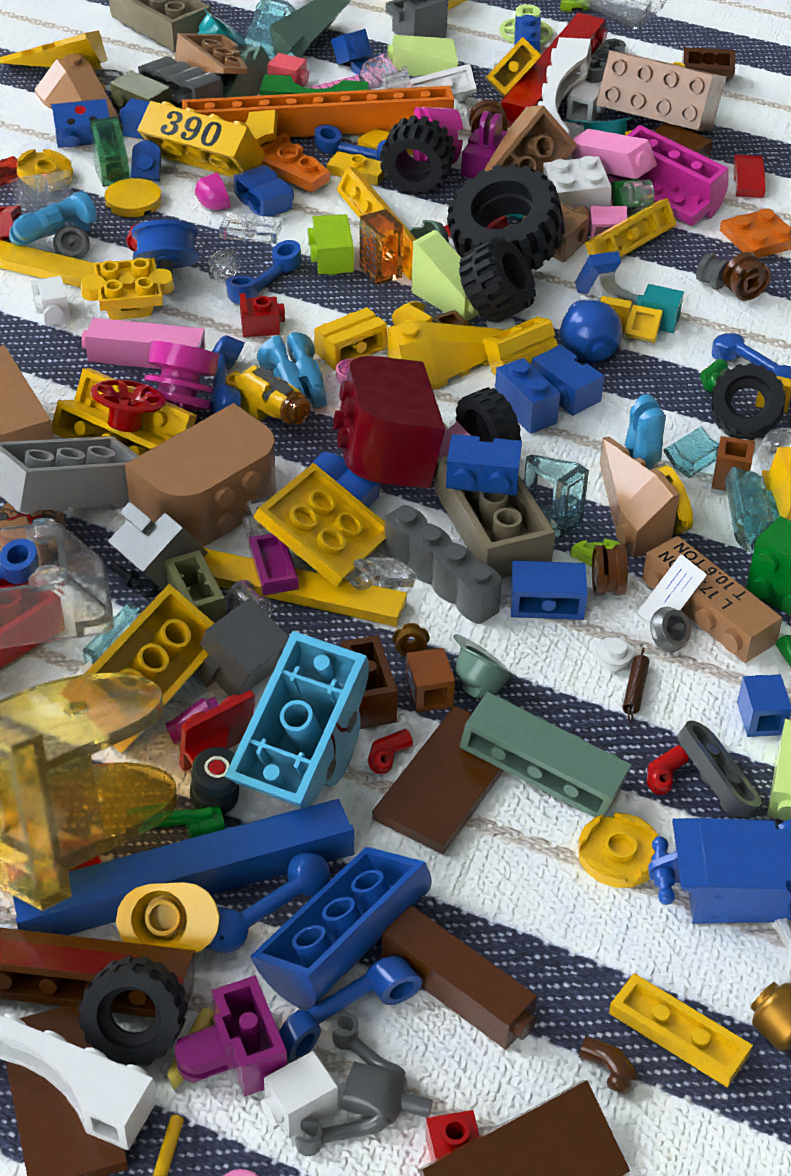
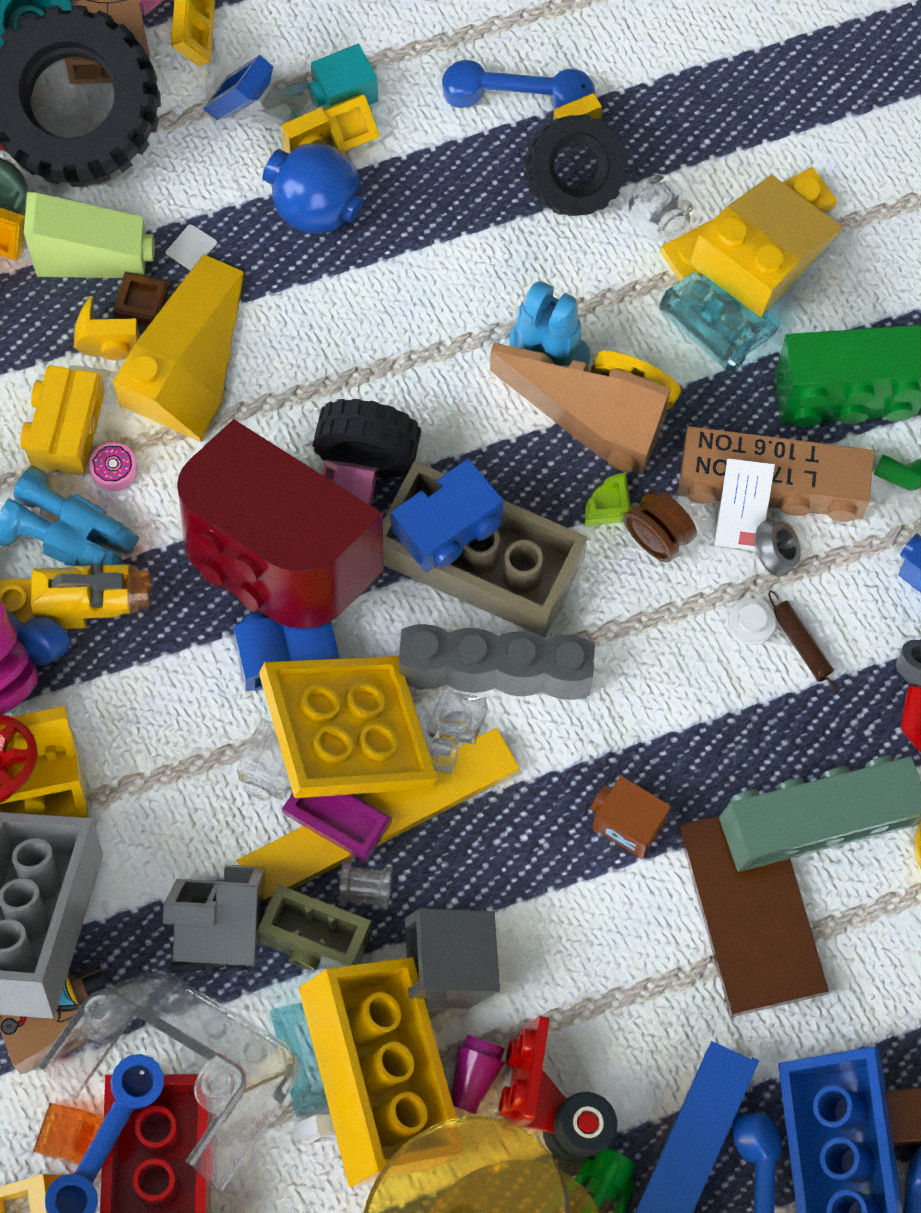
camera: 45 degrees left, 25 degrees up
(206, 474) = (162, 774): medium nougat brick -> none
(303, 722) = (618, 1010): medium azure brick -> none
(381, 694) = (590, 879): reddish brown brick -> none
(384, 749) = (668, 936): red arm -> none
(404, 646) = (561, 783): pearl gold plate -> none
(479, 669) = (662, 758): sand green piece -> none
(497, 279) = (156, 203): black tyre -> none
(519, 342) = (270, 279): yellow brick -> none
(529, 394) = (342, 345): blue brick -> none
(548, 590) = (622, 600): blue brick -> none
(569, 492) = (530, 471): clear light blue tile -> none
(578, 384) = (355, 285): blue brick -> none
(692, 452) = (572, 272): clear light blue piece -> none
(711, 374) = (485, 146): green arm -> none
(731, 453) = (641, 272): dark orange brick -> none

